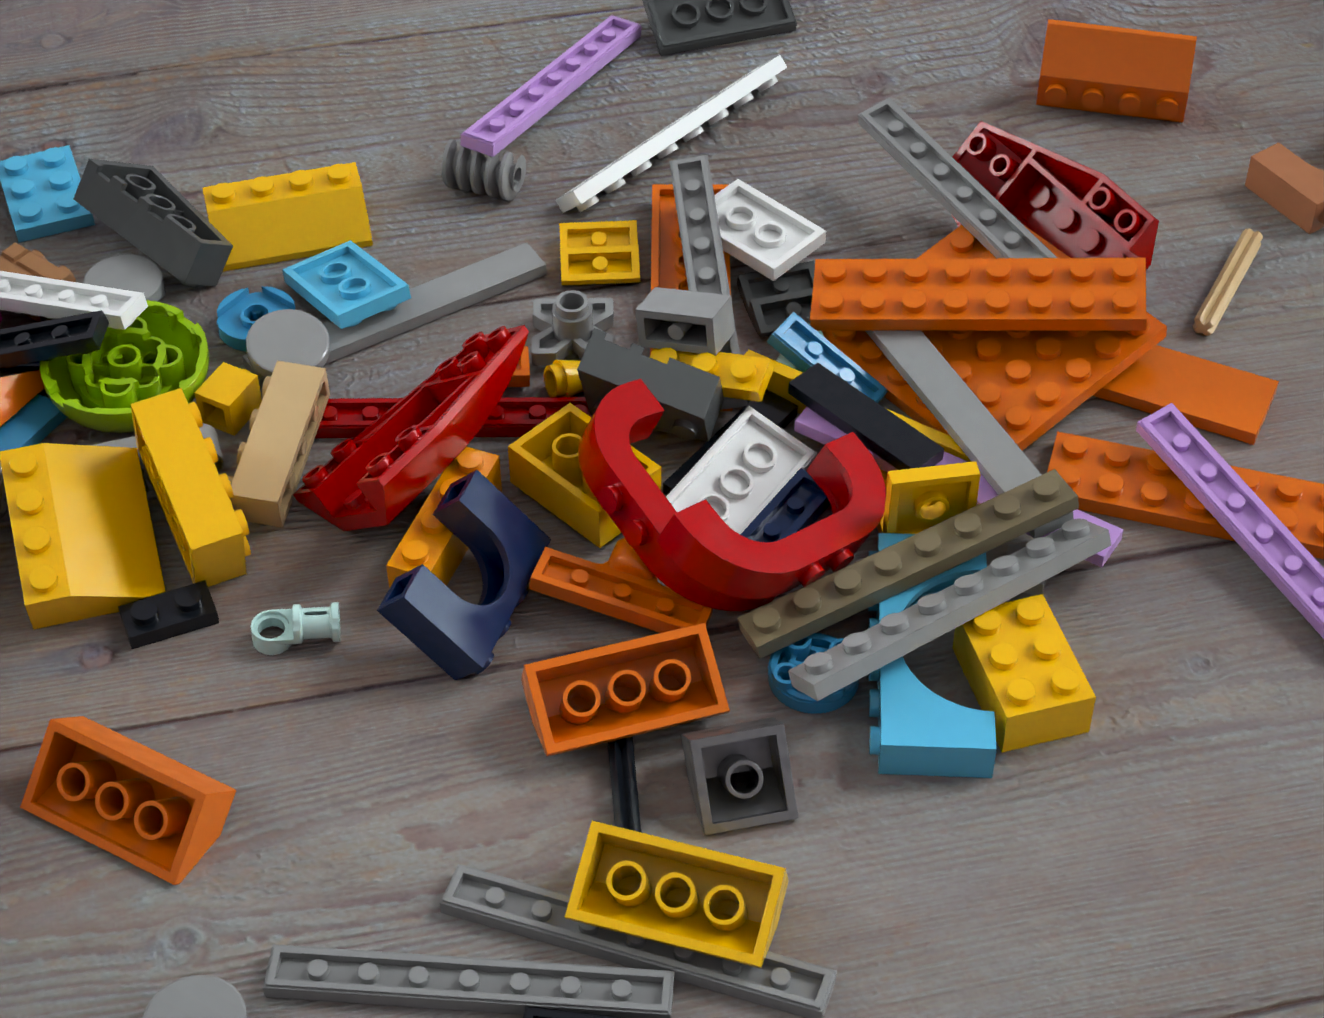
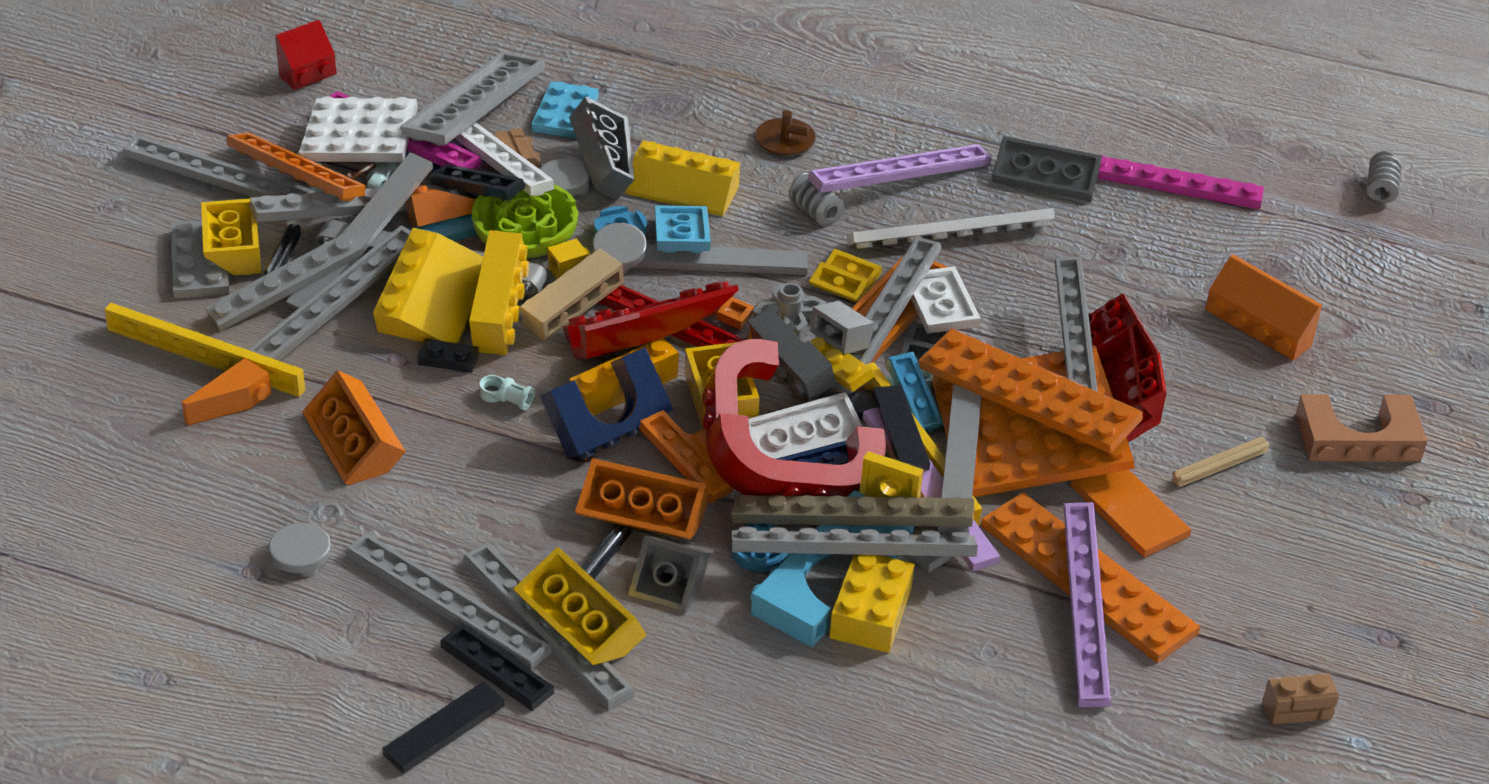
camera: 30 degrees right, 5 degrees down
(366, 104) = (785, 135): none -> reddish brown shield

